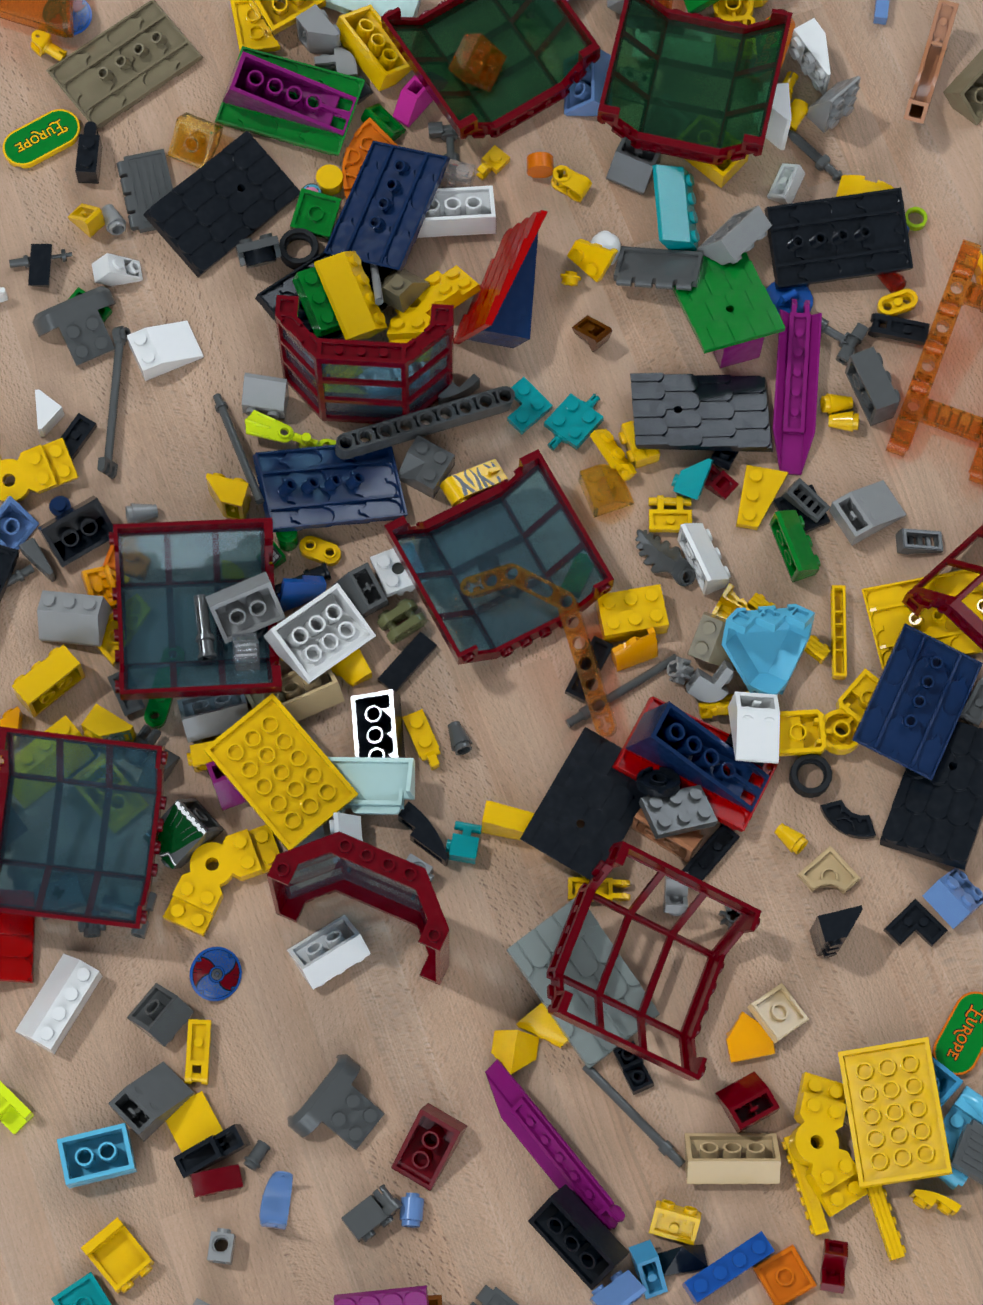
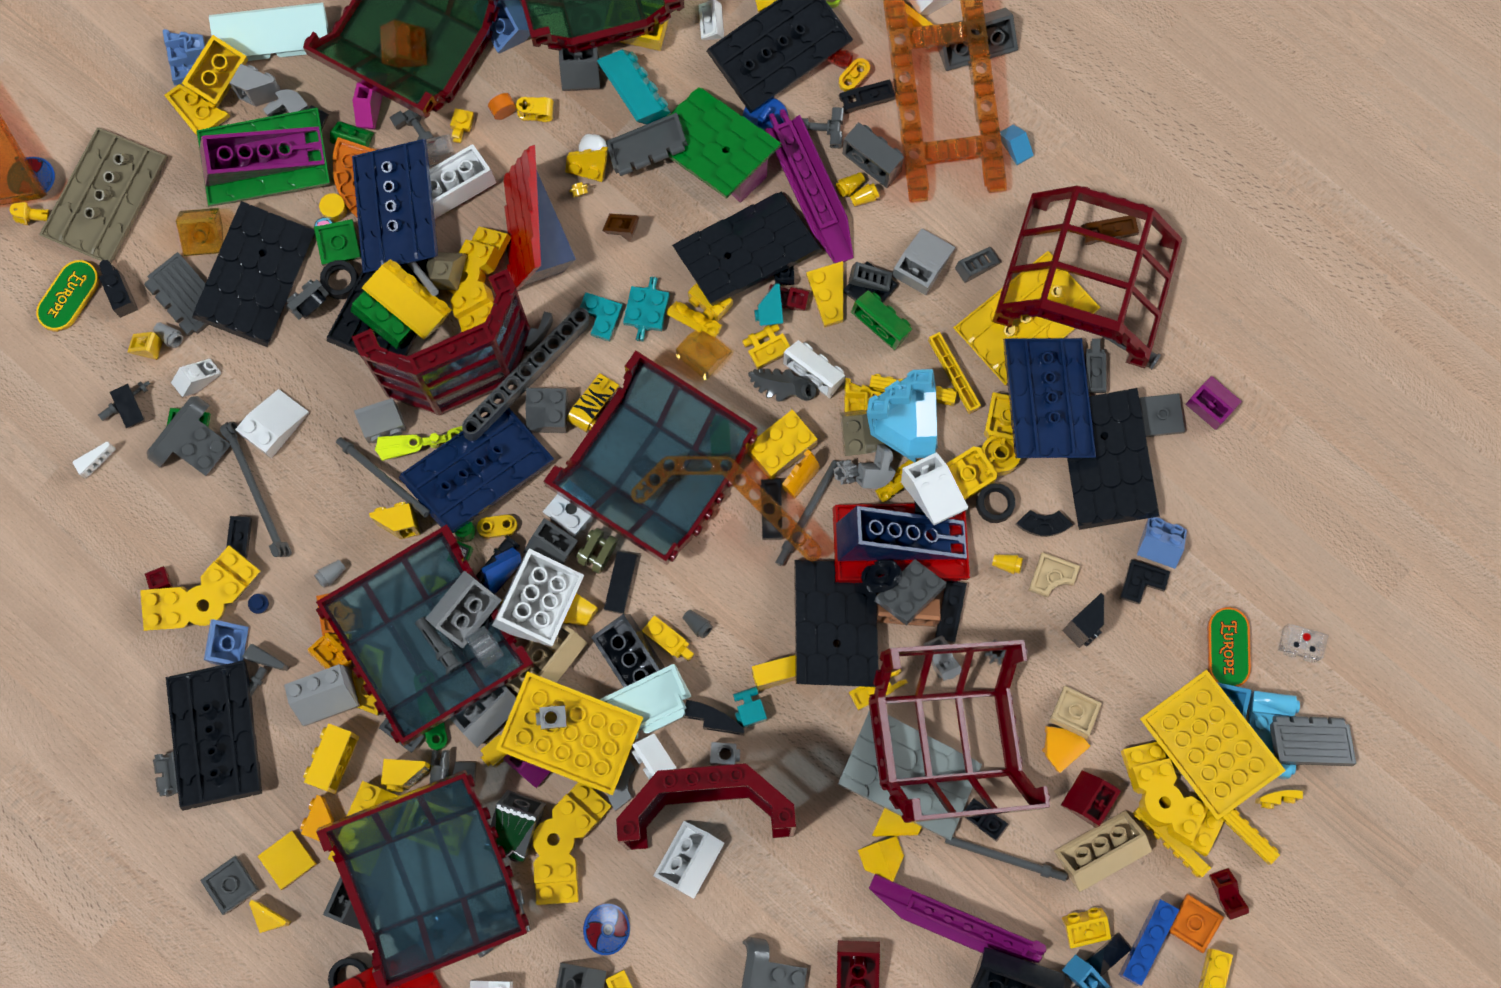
camera: 25 degrees left, 5 degrees up
(48, 413) = (204, 530): white slope -> none
(77, 531) = (285, 617): black slope -> none
(276, 755) = (561, 717): none -> light grey brick
(372, 47) = (307, 76): yellow slope -> none
(736, 236) = (696, 85): light grey slope -> none

